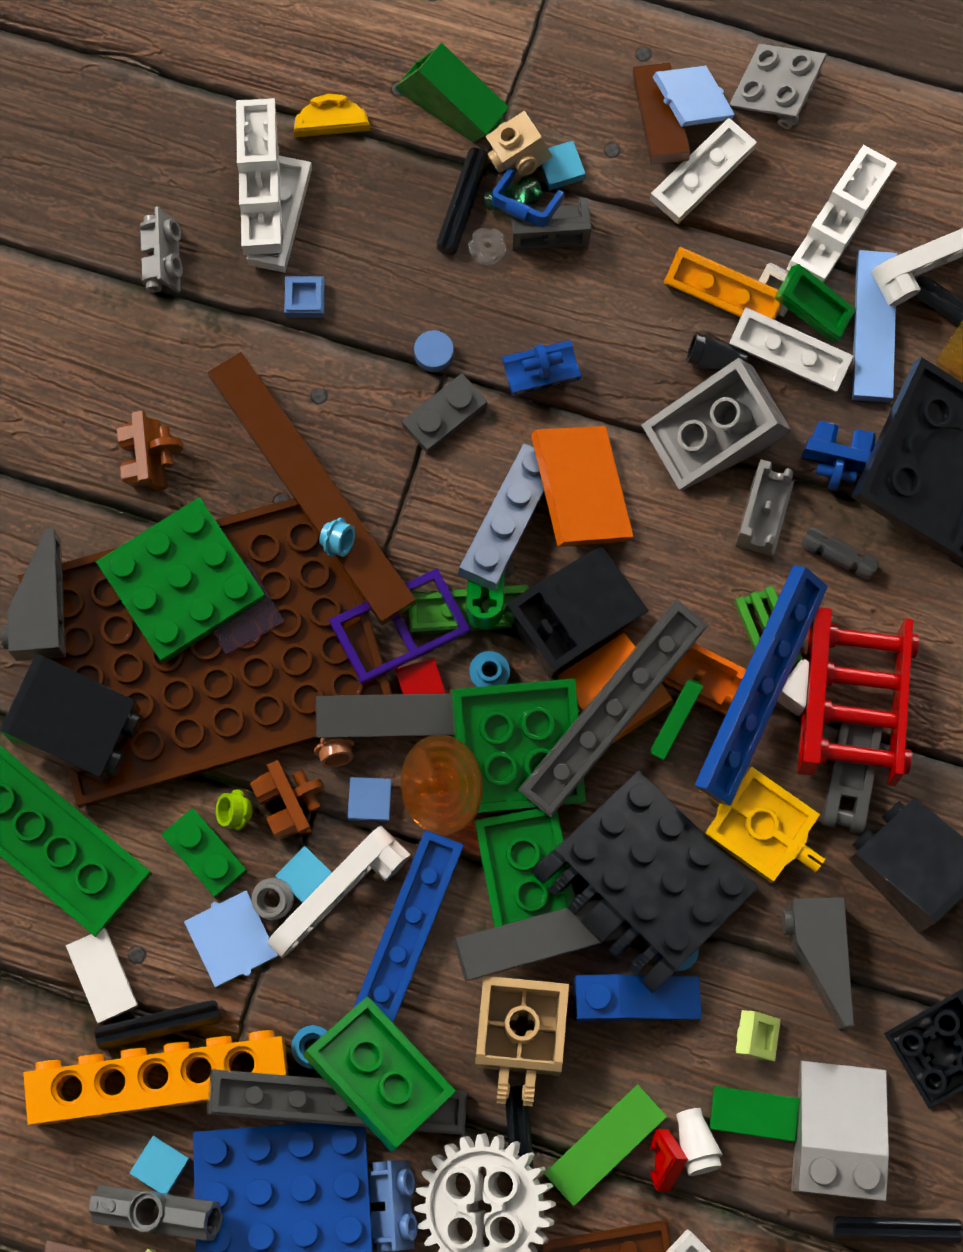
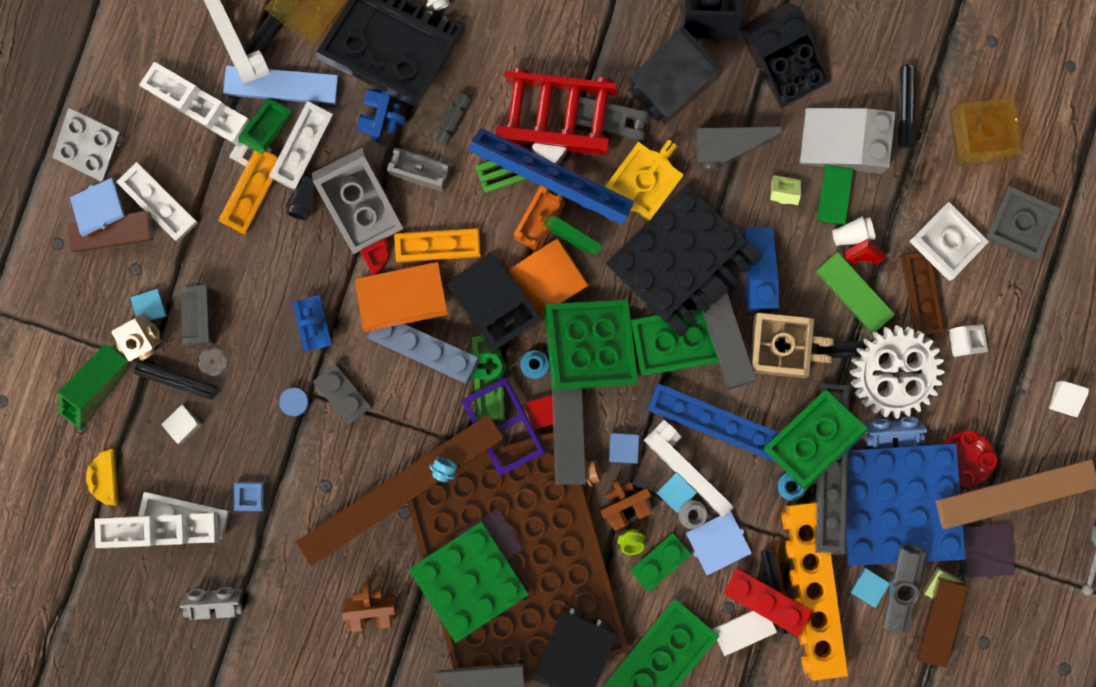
camera: 90 degrees left, 10 degrees up
(140, 1007) = (768, 602): none -> red plate
(401, 209) = (181, 424): none -> white slope
(441, 784) = (617, 397): clear orange shield -> none
(520, 209) = (190, 337): blue piece -> none
(525, 191) = (172, 337): clear green arm -> none
(612, 708) = (566, 278): dark grey tile -> none
(639, 455) = (376, 256): none -> red tile
(657, 538) = (437, 245): none -> light orange tile

